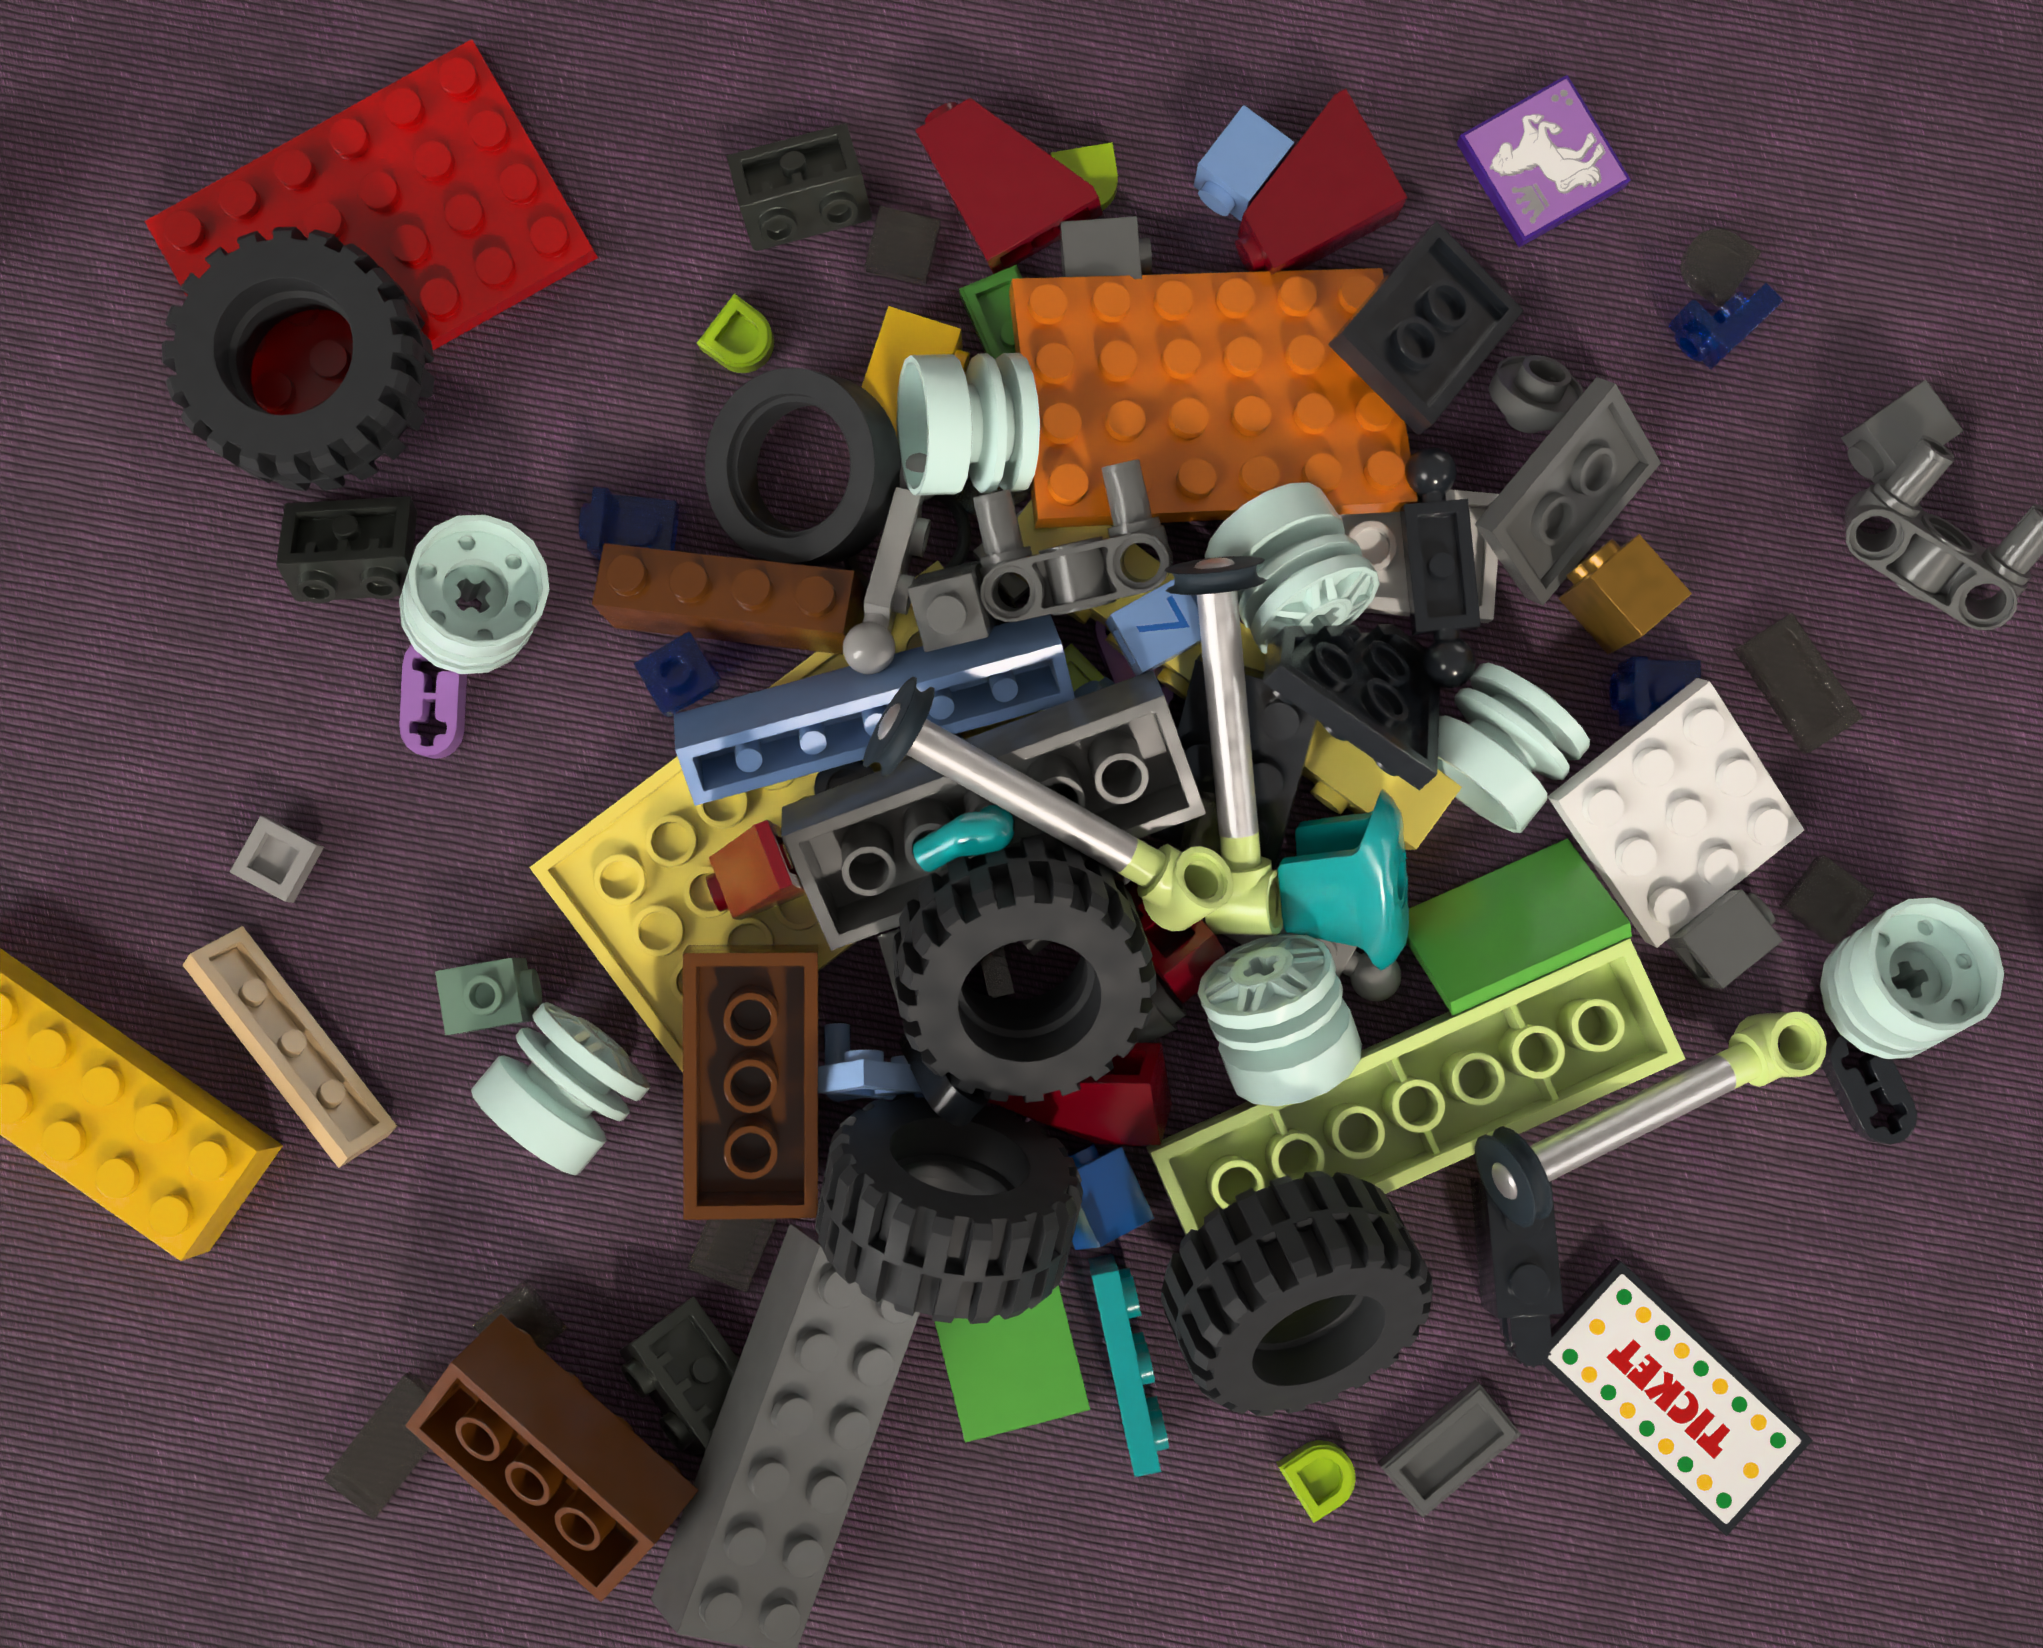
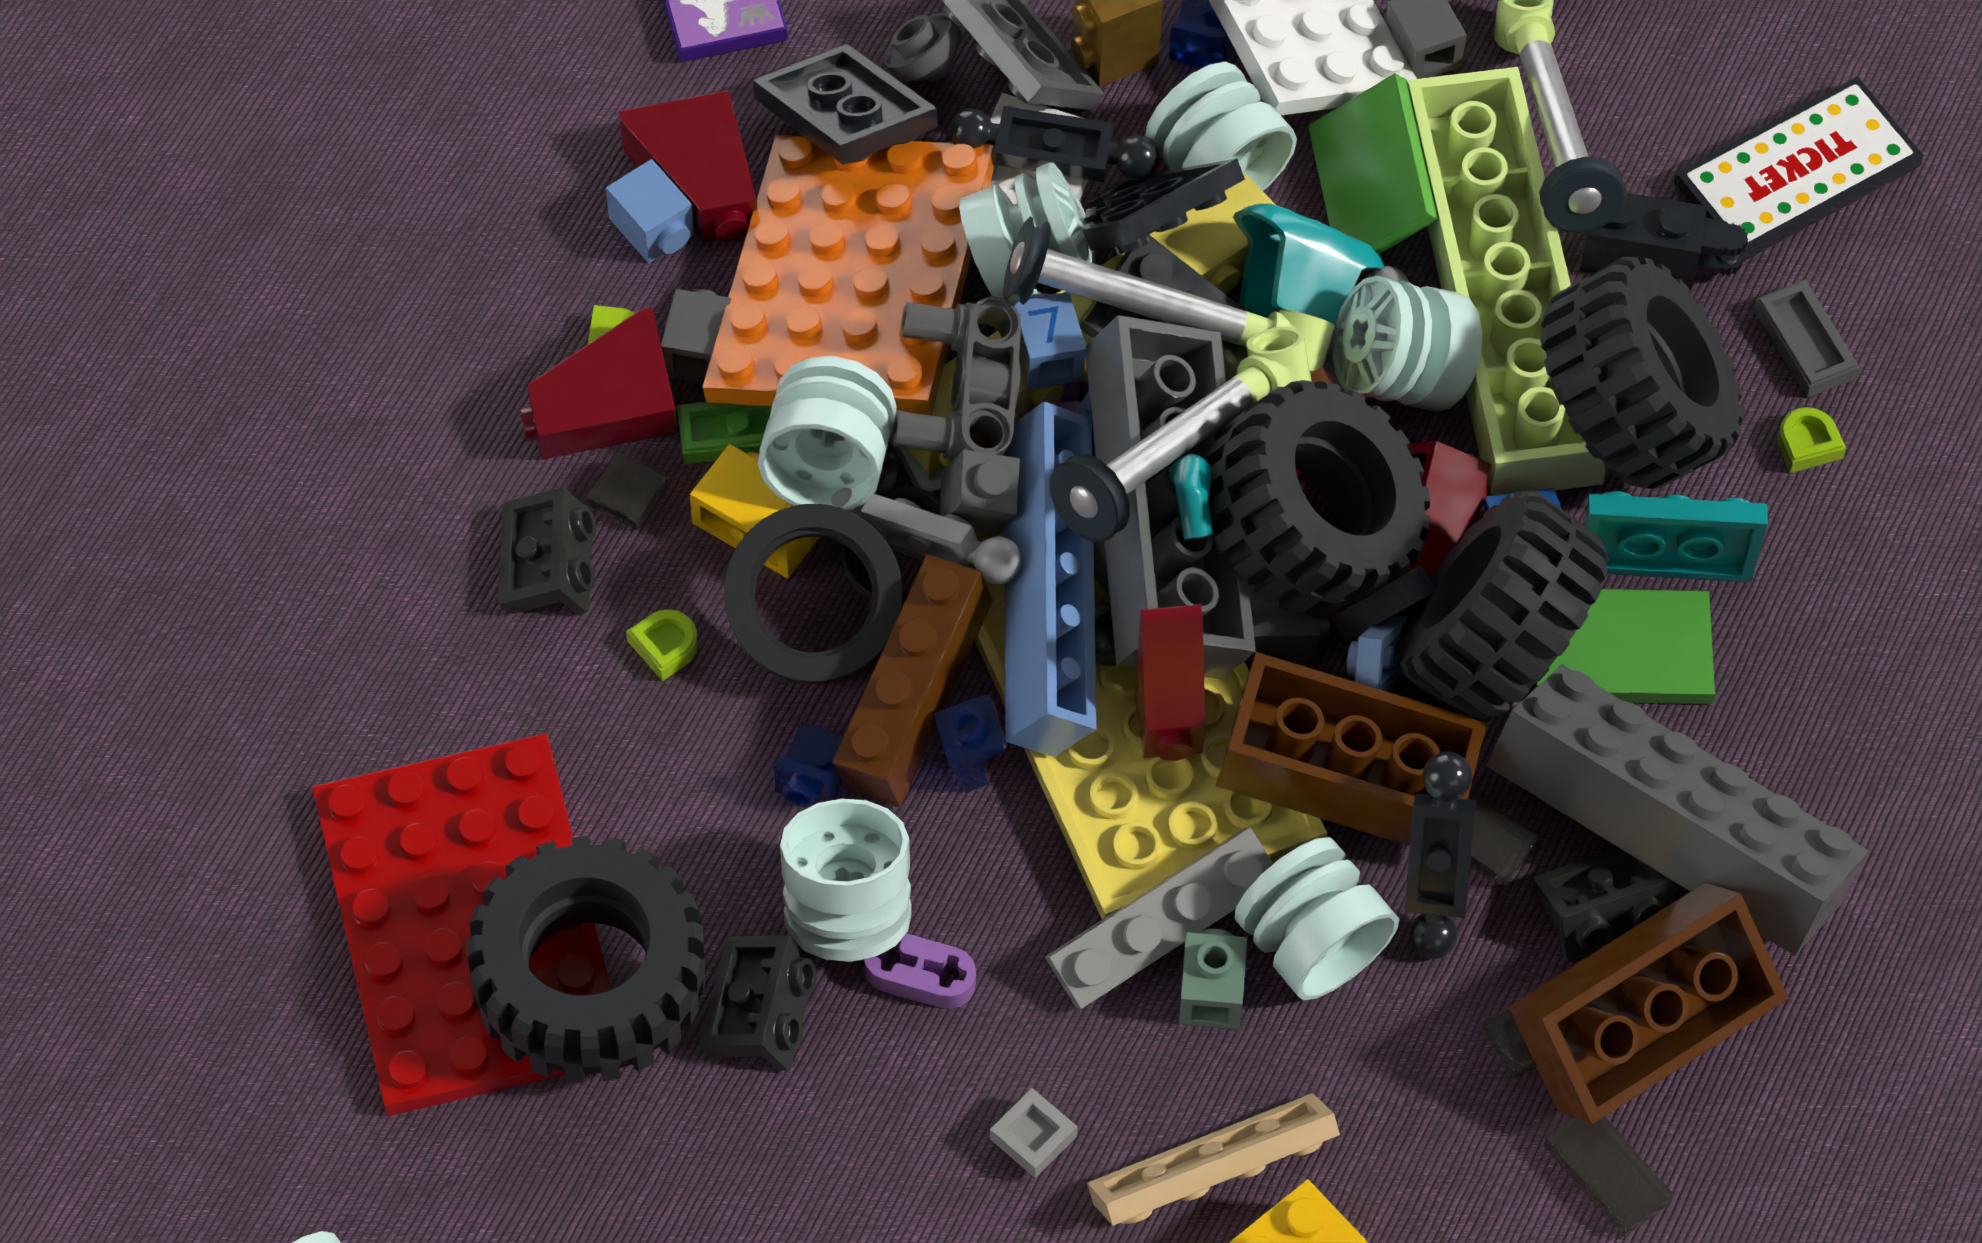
camera: 75 degrees left, 25 degrees down
(540, 928) = (1159, 919): none -> light grey plate
(646, 1204) = (1440, 855): none -> black plate

